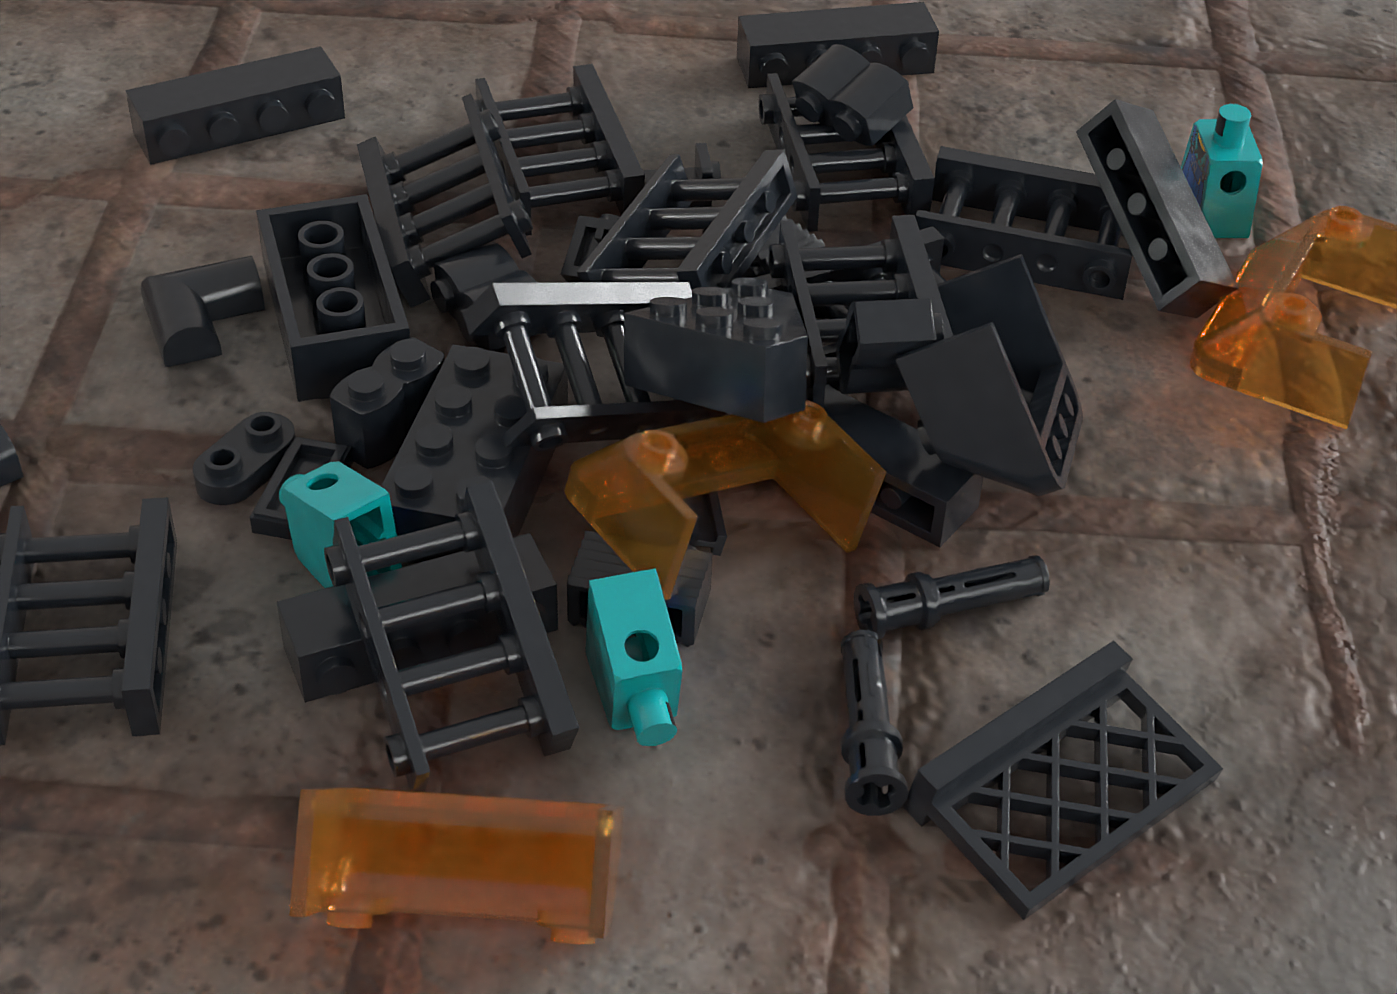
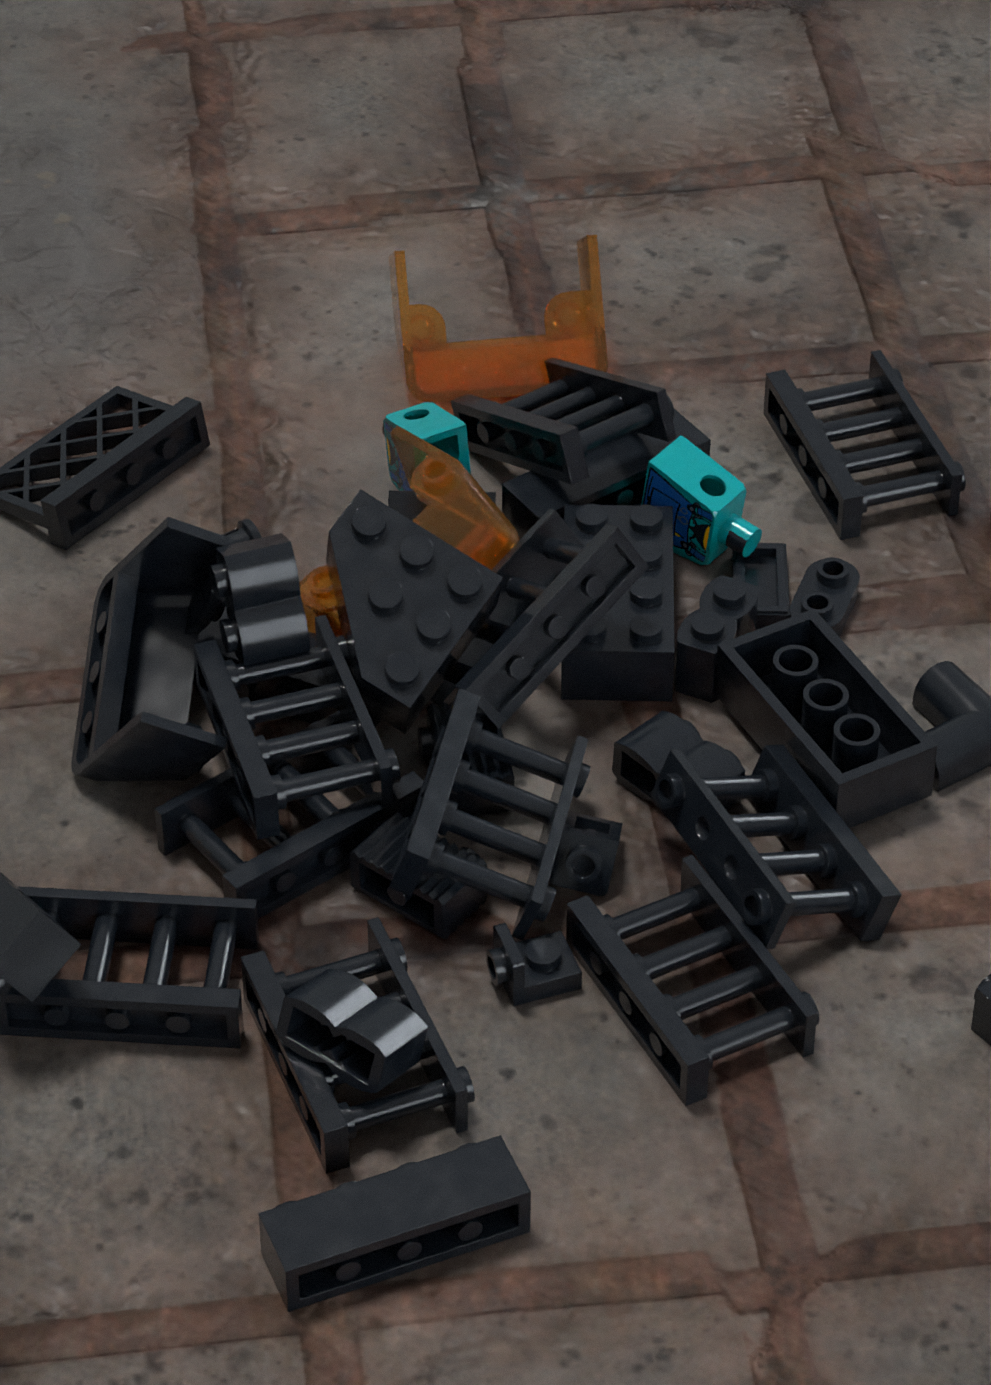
camera: 170 degrees right, 0 degrees up
(870, 742) = (238, 459): black pin -> none

